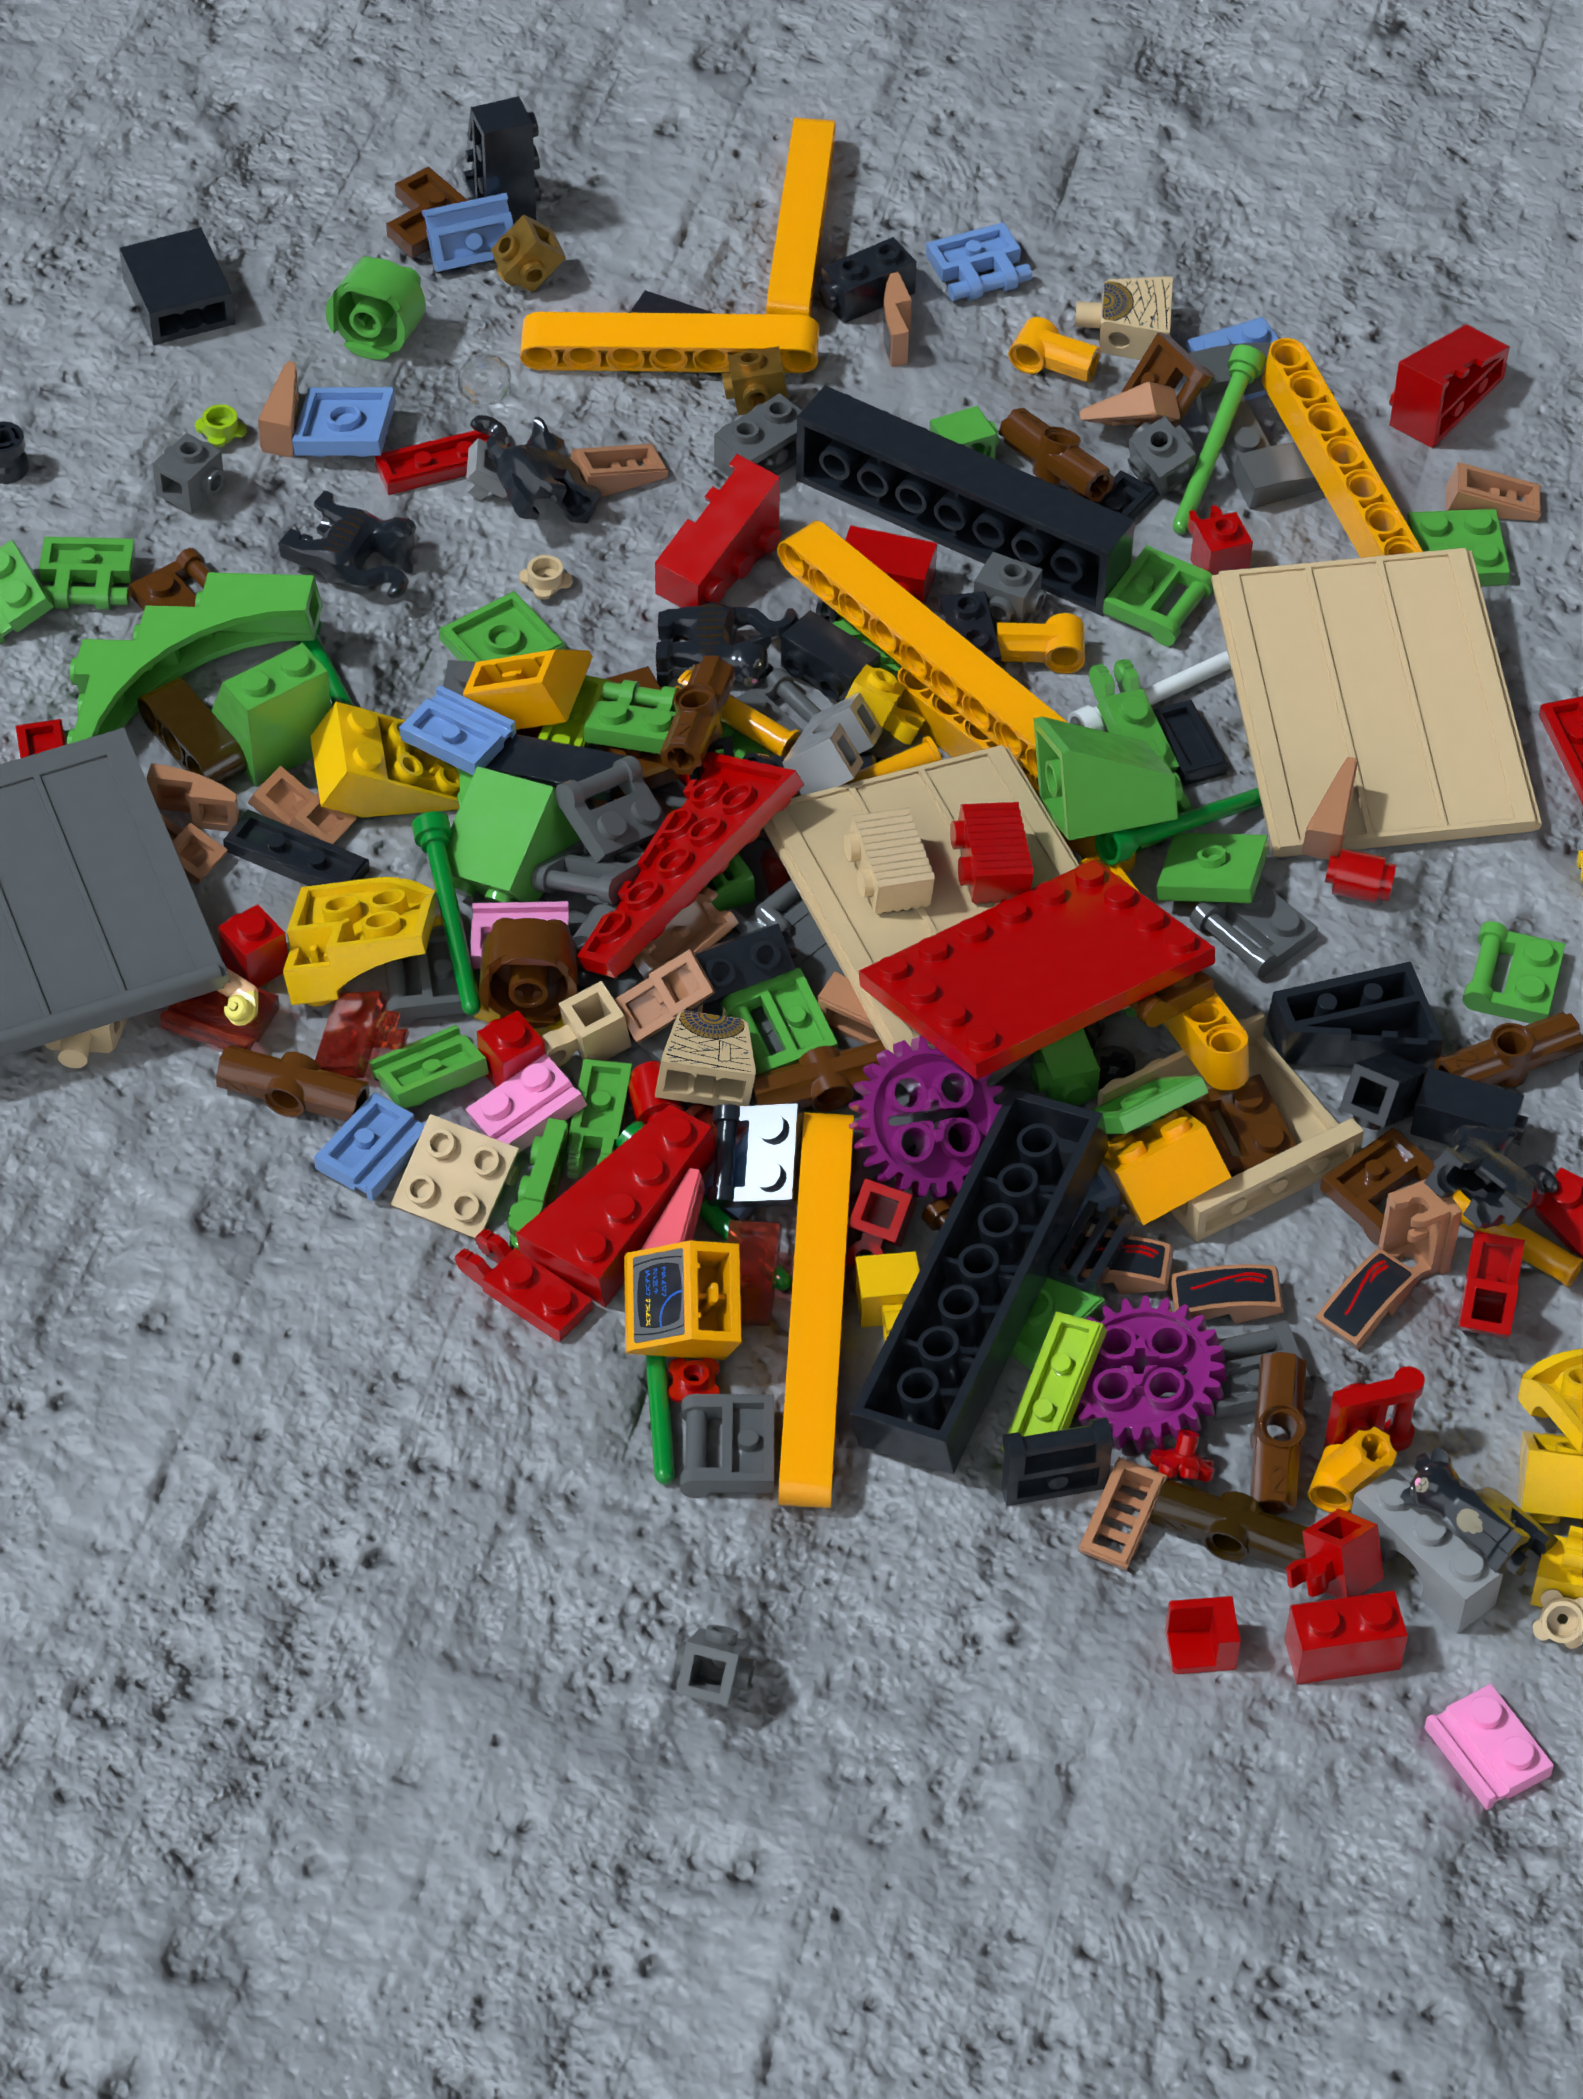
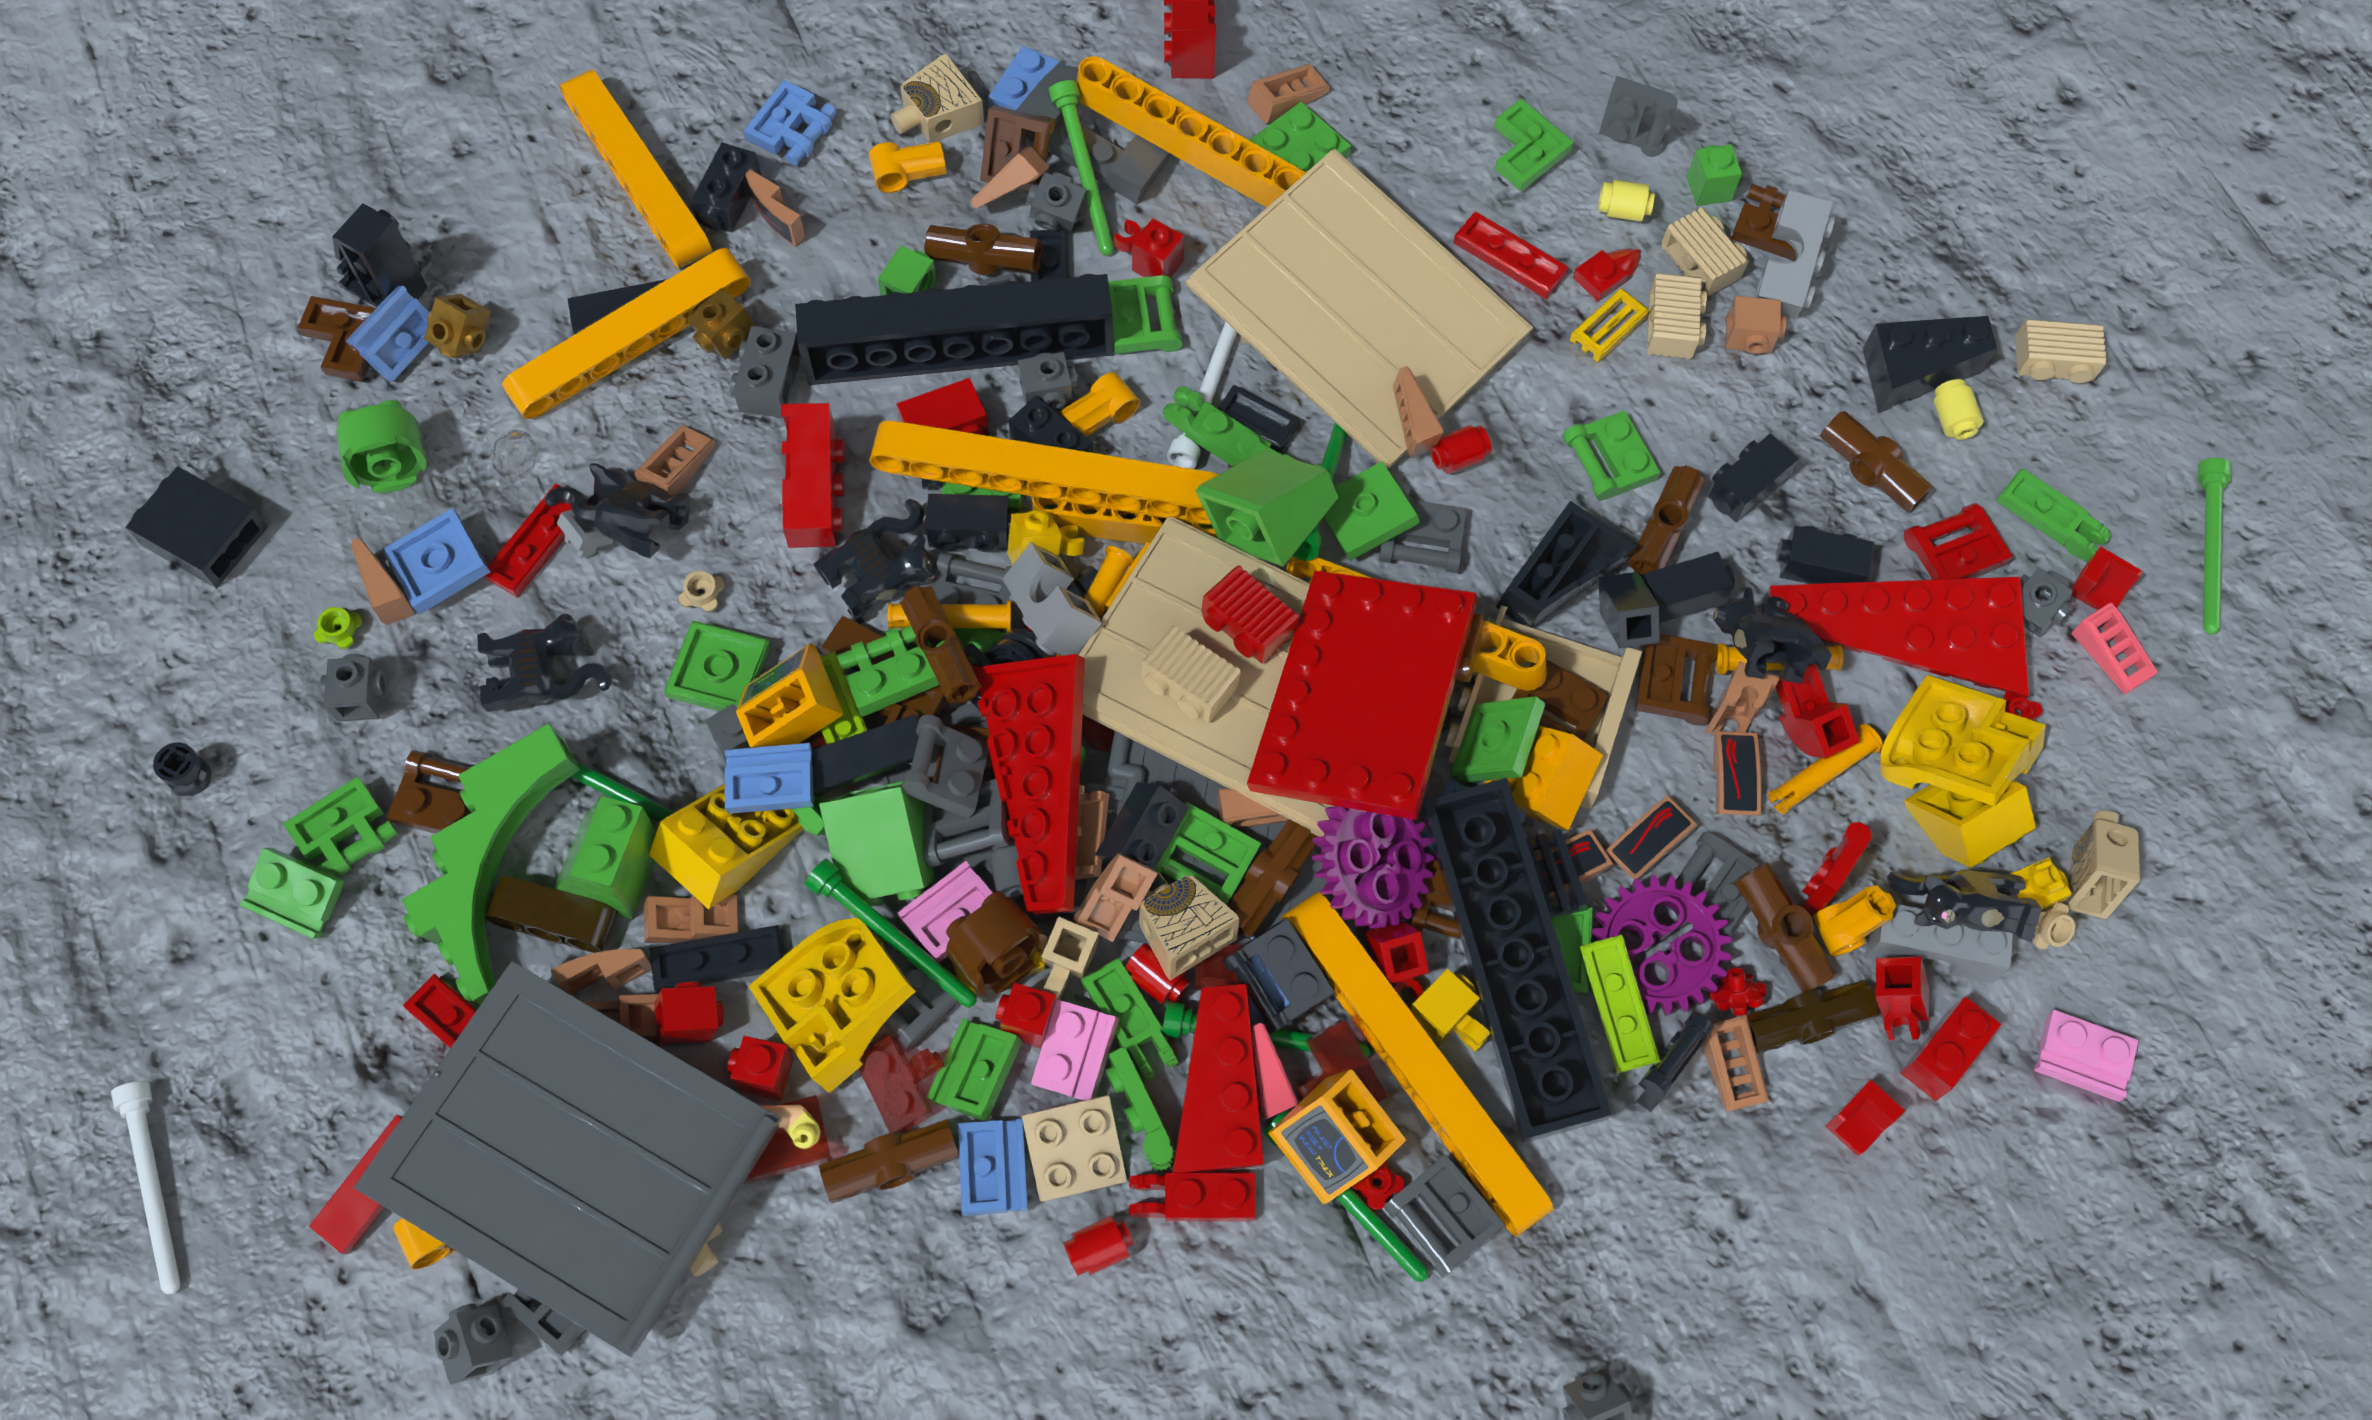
camera: 40 degrees left, 15 degrees up
(230, 870) = (687, 1014): none -> red brick
(404, 1258) = (1098, 1246): none -> red brick
(1461, 1350) = (1824, 770): none -> light orange pin

